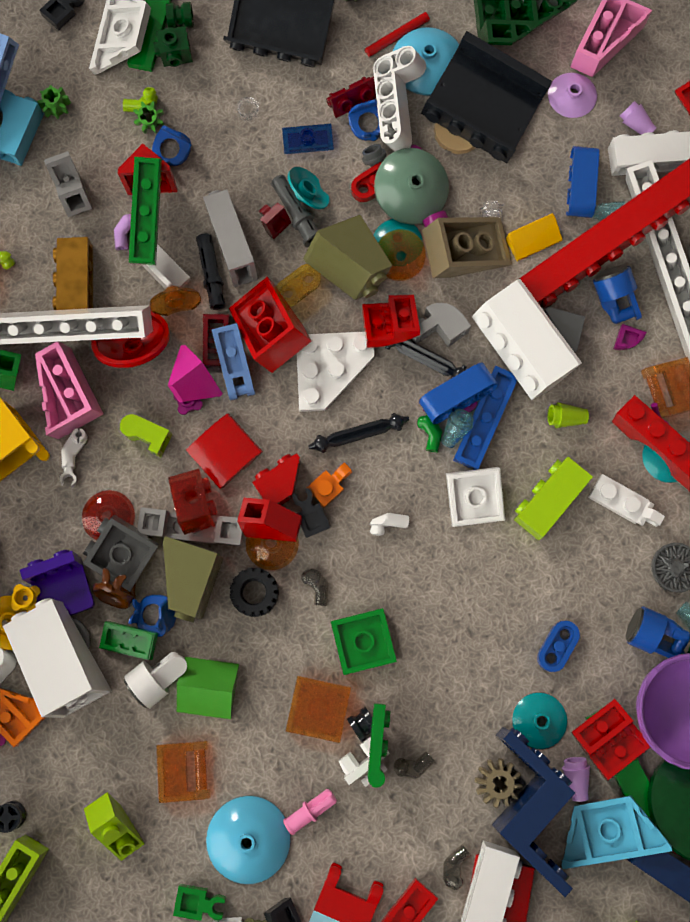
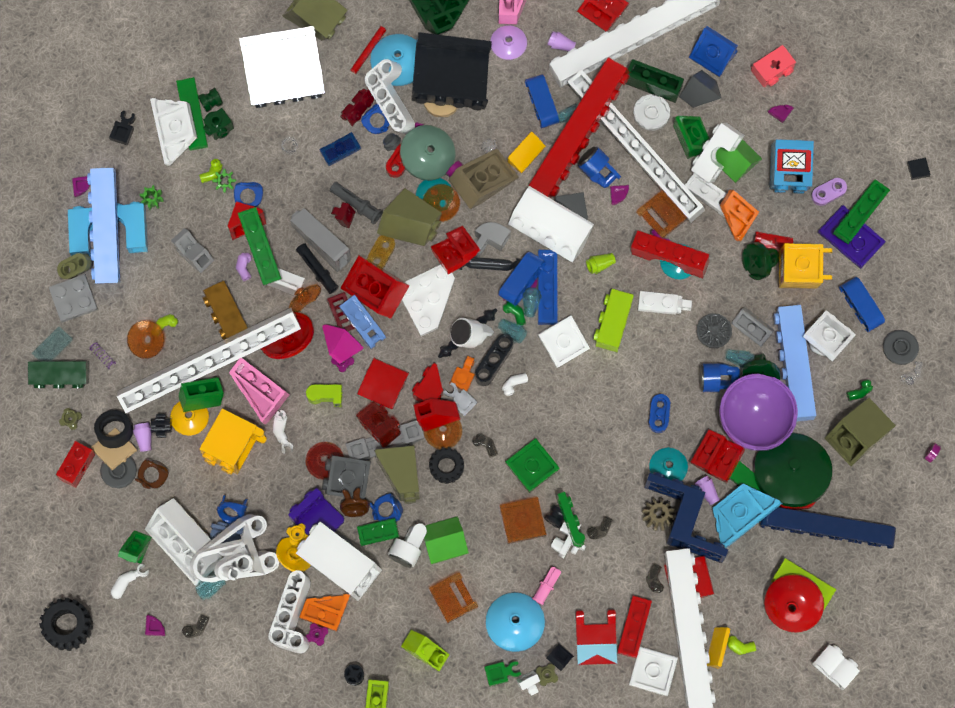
camera: 25 degrees left, 5 degrees down
(307, 188) = (357, 184): teal dish -> none
(359, 434) = (469, 332): none -> piece
(382, 471) = (495, 351): none -> black beam
(418, 456) = (515, 330): none -> clear light blue cone

